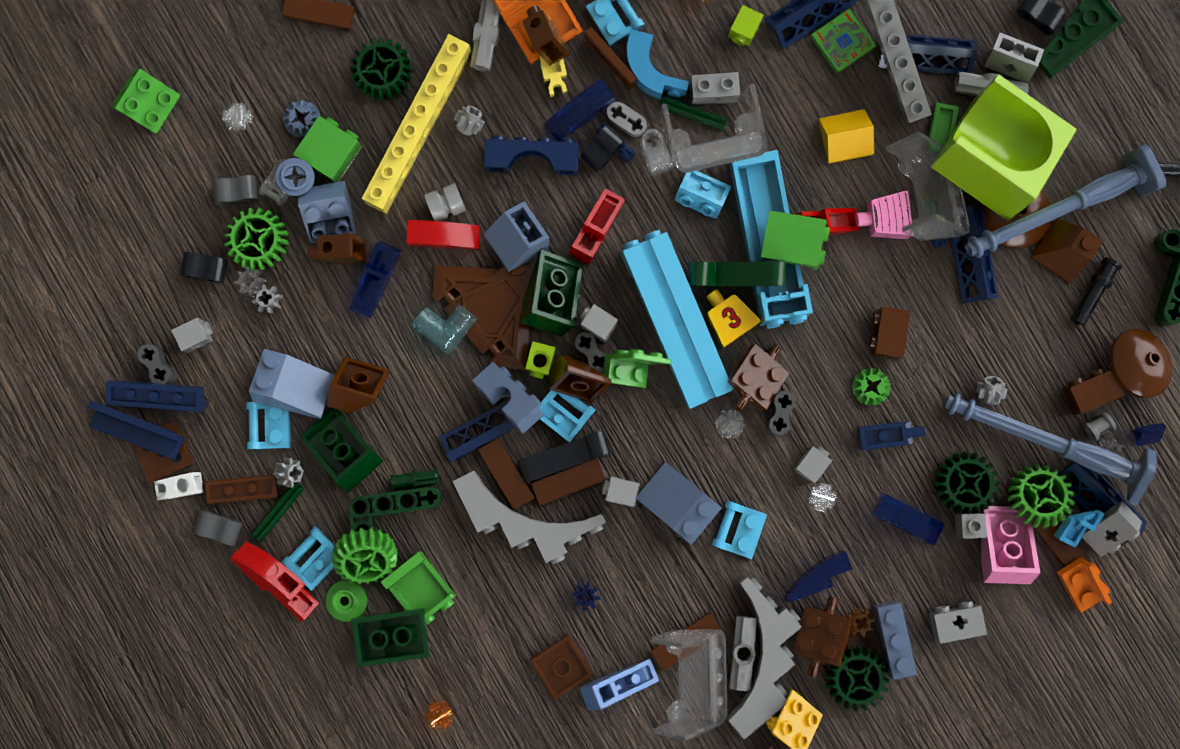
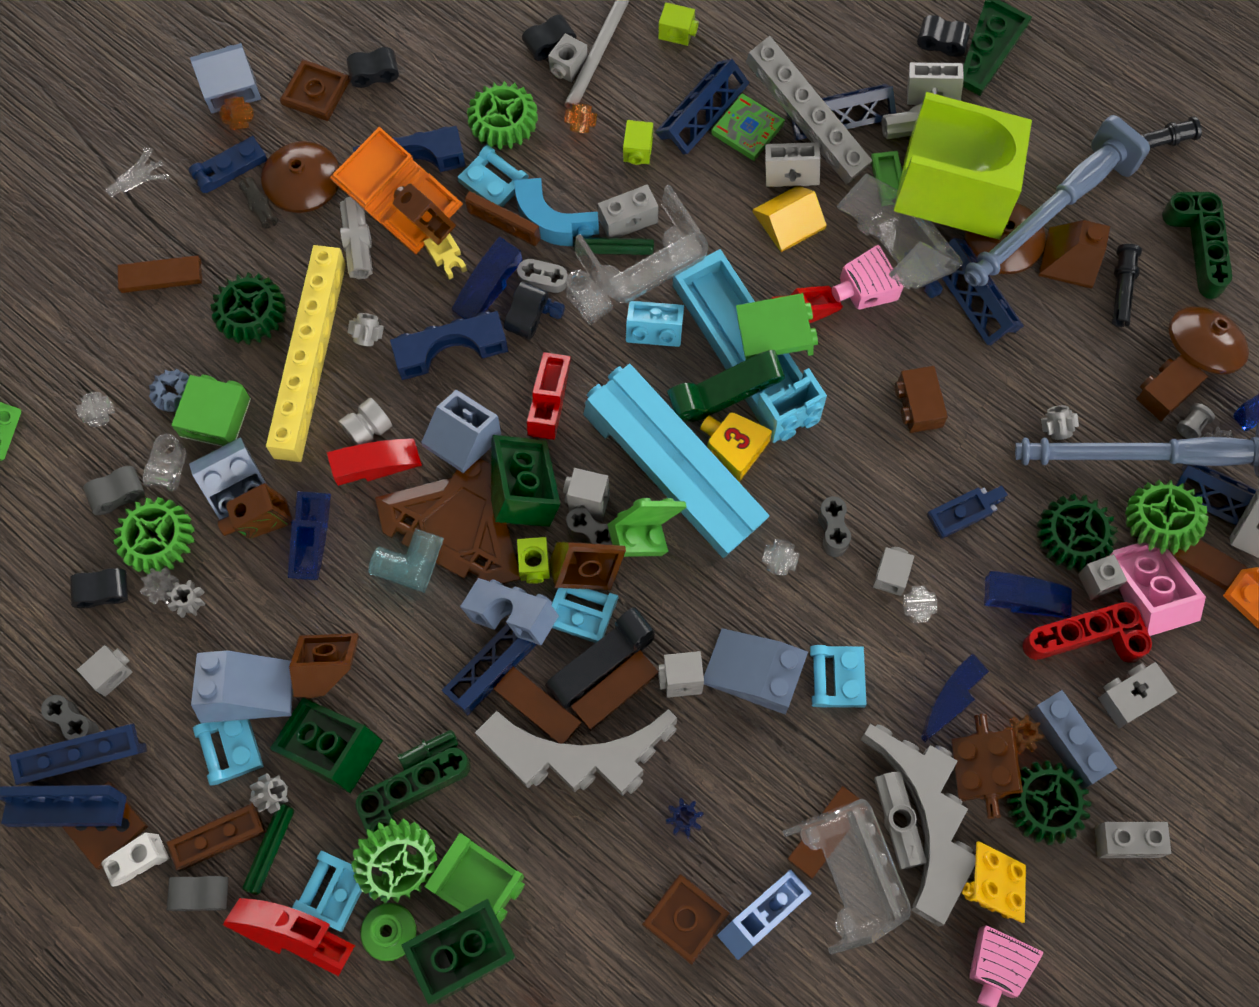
camera: 20 degrees left, 15 degrees down
(303, 169) = (188, 437): sand blue gear -> none
(758, 377) = (792, 494): plate -> none
(860, 384) = (927, 477): bright green gear -> none
(865, 92) = (792, 164): none -> light grey brick
(907, 727) = (1132, 840): none -> light grey brick
(936, 564) = (1083, 635): none -> red beam
(1076, 525) = (1220, 534): dark azure slope -> none

